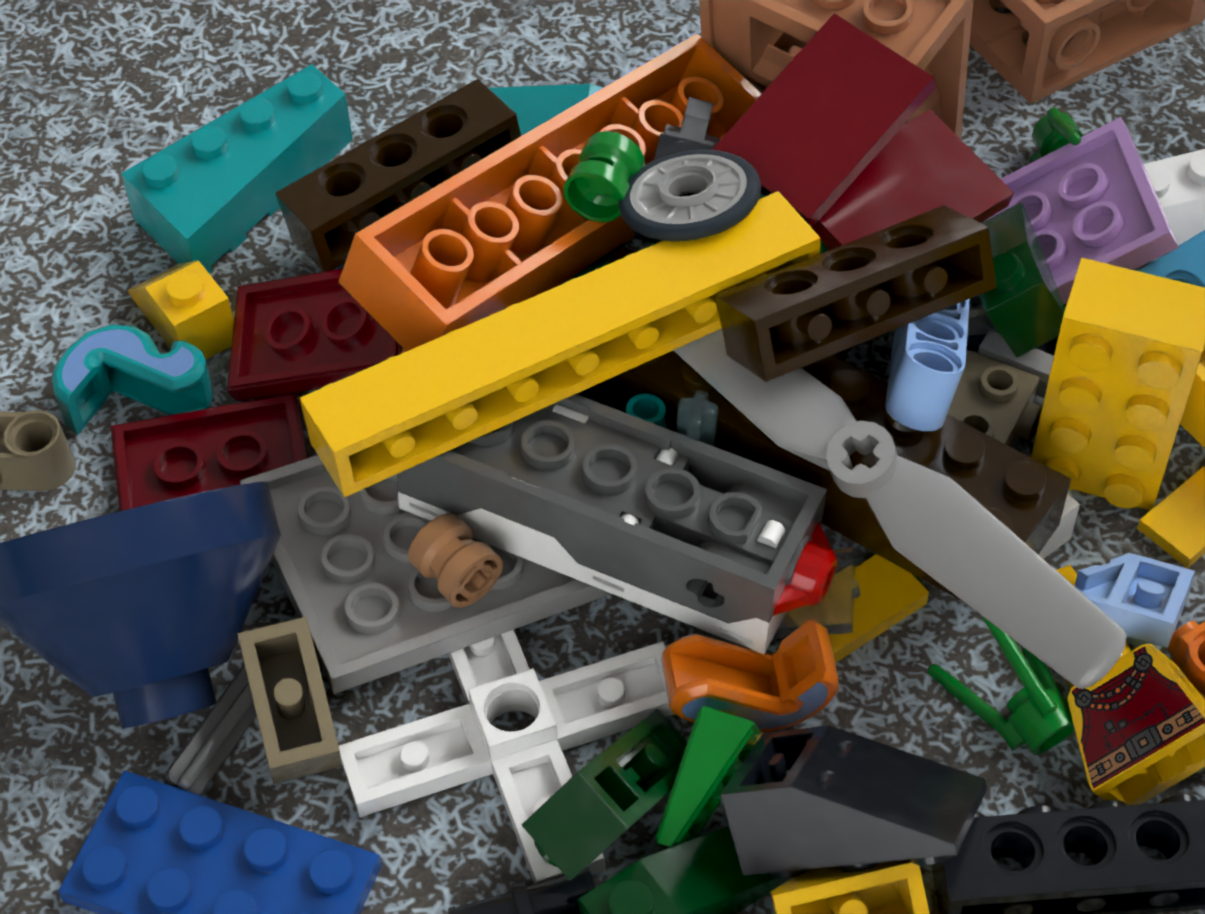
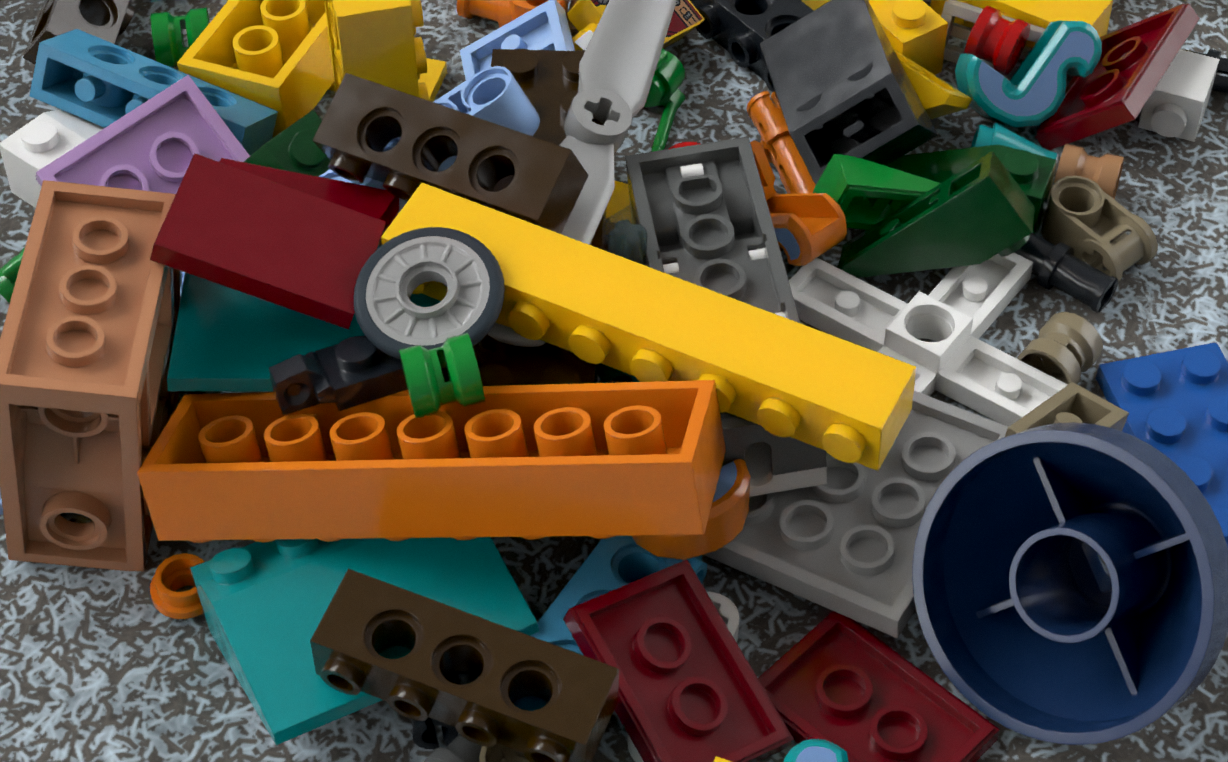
camera: 125 degrees left, 5 degrees down
(411, 819) = (1066, 347): none -> dark tan wheel

